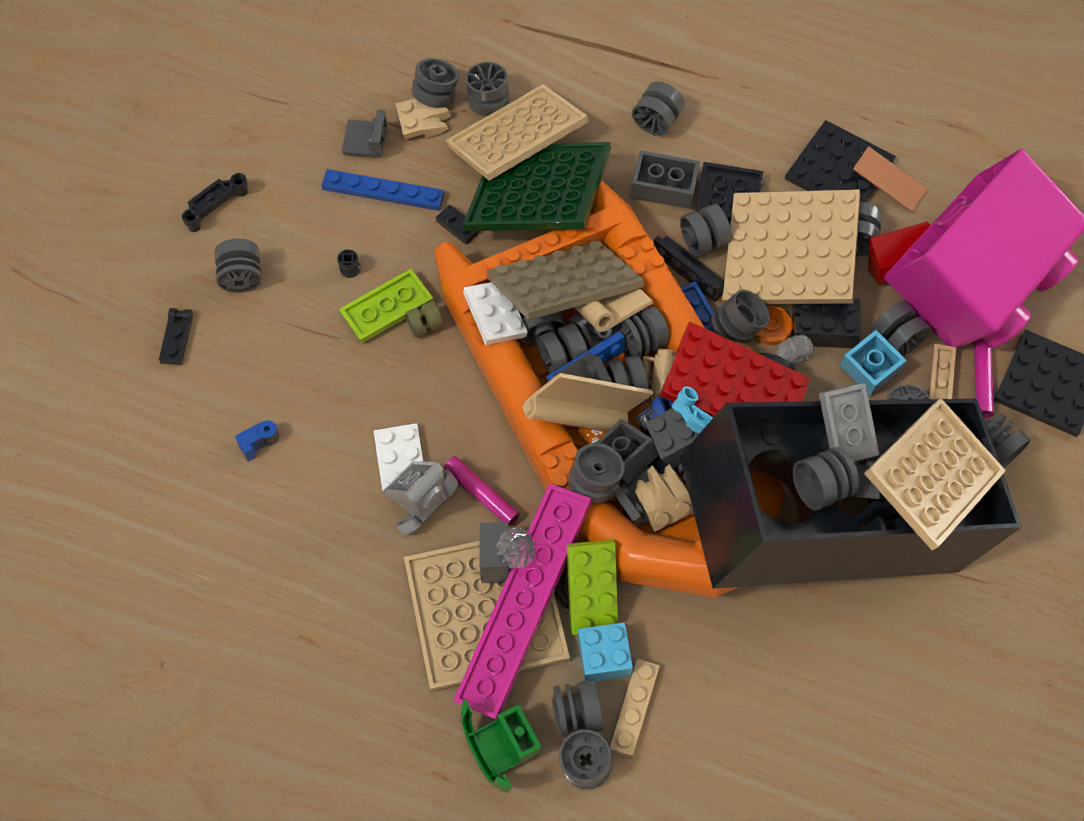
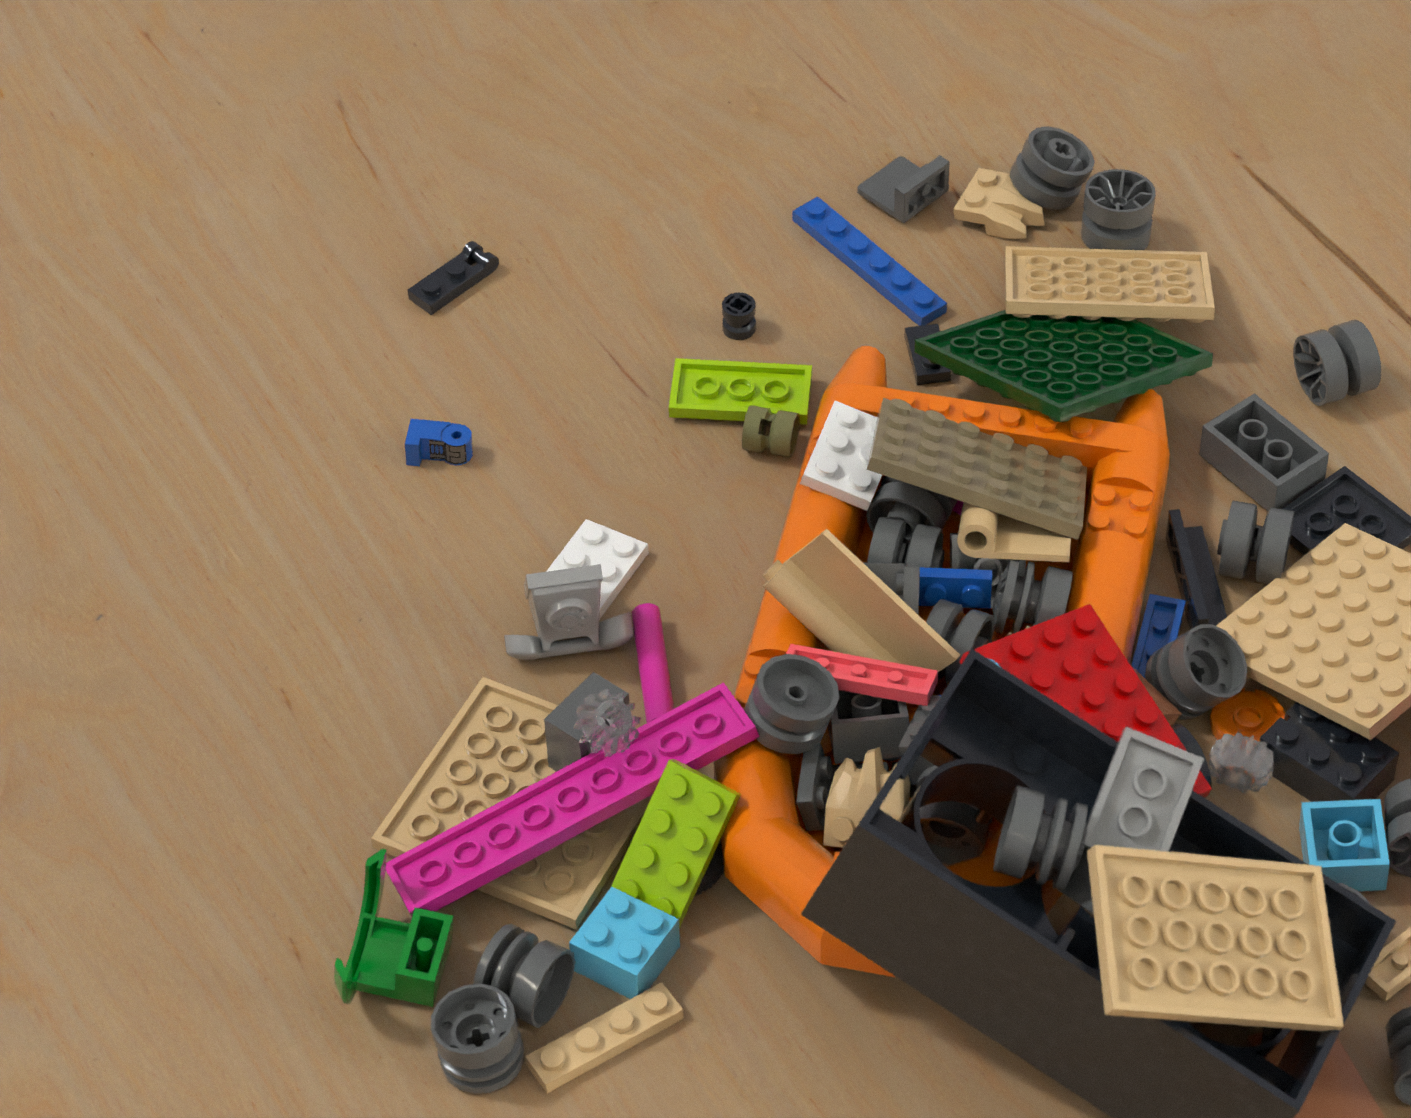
camera: 40 degrees right, 15 degrees down
(211, 198) = (640, 151): black plate -> none
(237, 265) = (595, 236): dark grey wheel -> none
(612, 431) = (874, 676): none -> coral plate

